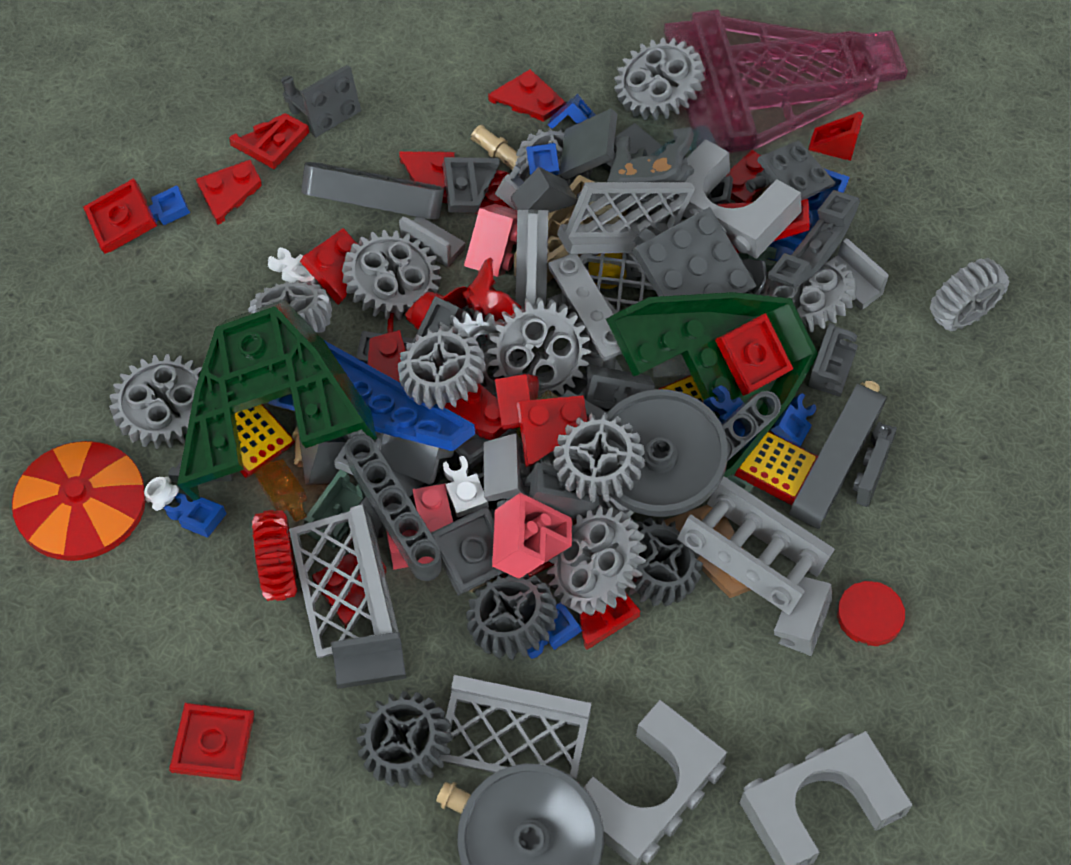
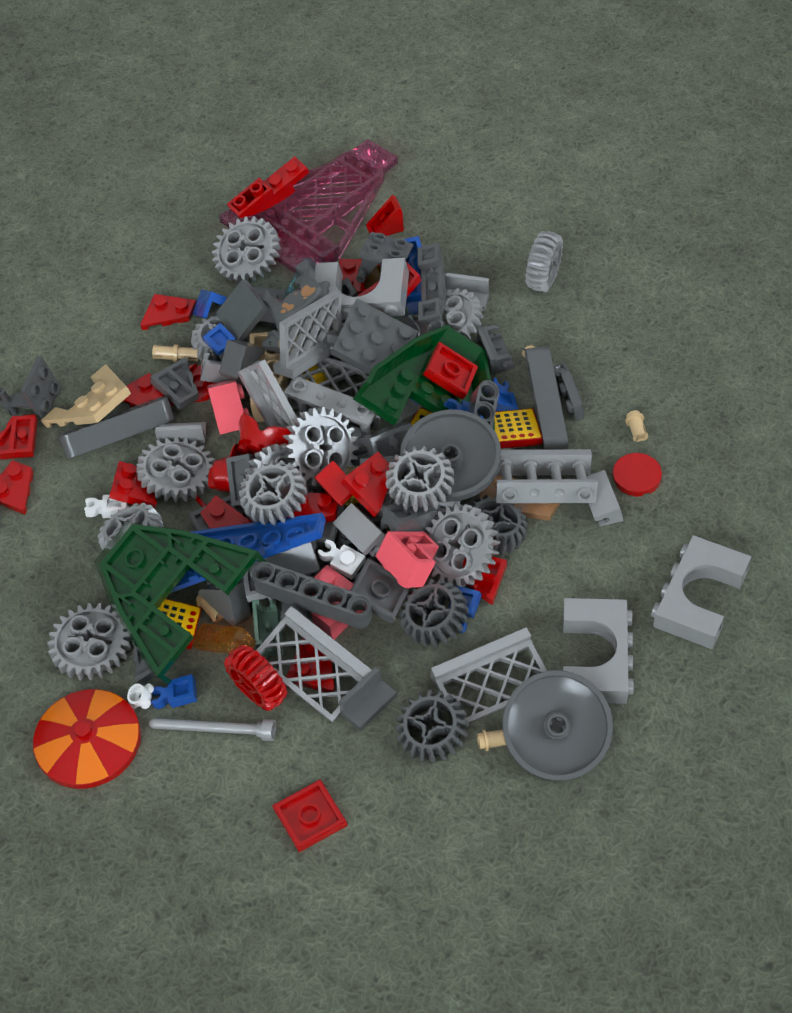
camera: 30 degrees left, 5 degrees down
(245, 616) = (264, 730): none -> light grey piece
(374, 151) = (95, 405): none -> tan wing
(727, 29) = (265, 194): none -> red slope
(920, 550) = (635, 421): none -> tan pin

